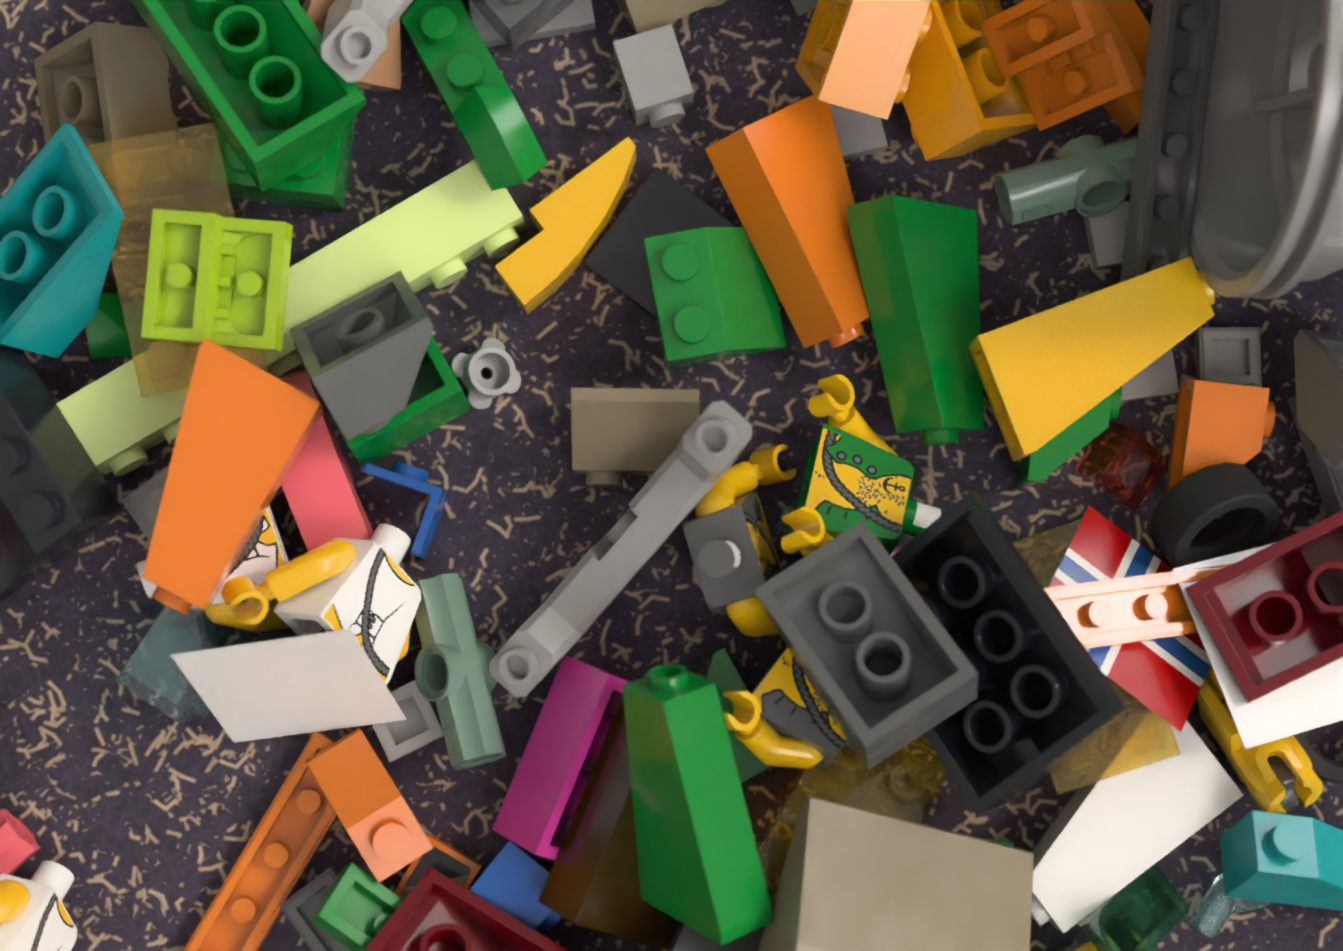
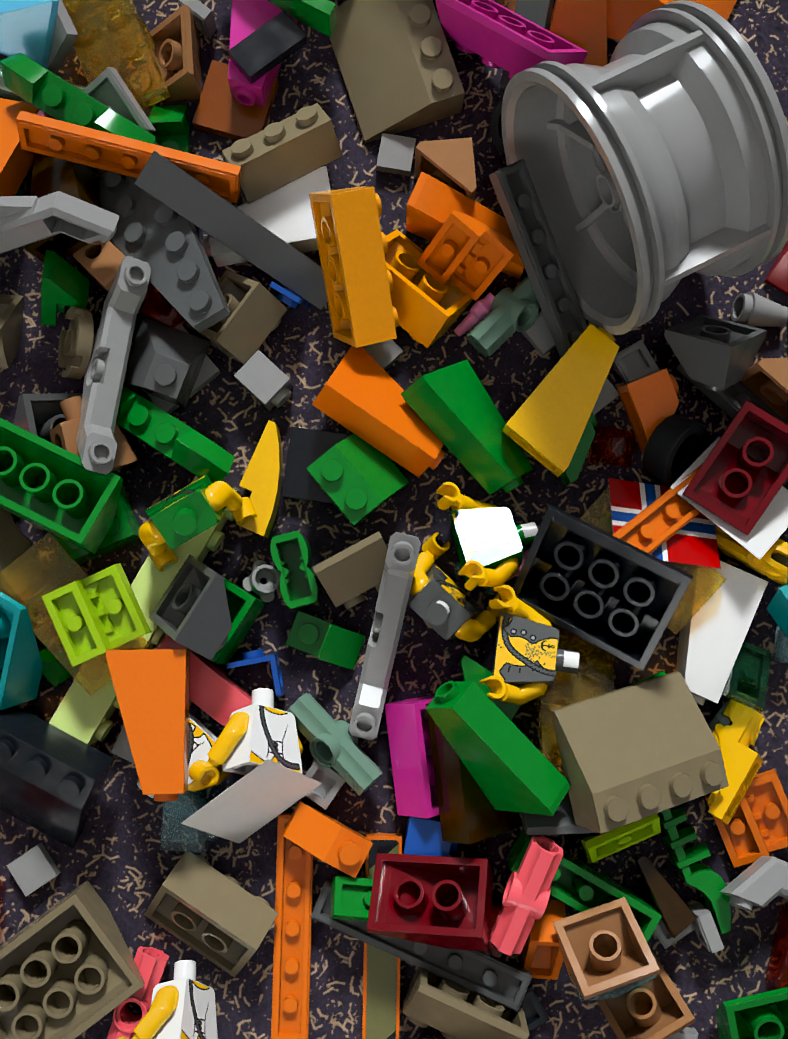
camera: 25 degrees left, 0 degrees up
(136, 818) = (211, 913): none -> dark tan slope
(432, 208) = (188, 515): none -> torso
(529, 513) = (325, 640): none -> green slope
(549, 364) = (293, 559): none -> green brick
(868, 644) = (539, 614): dark grey slope -> none
(1032, 150) = (477, 313): none -> bright pink piece

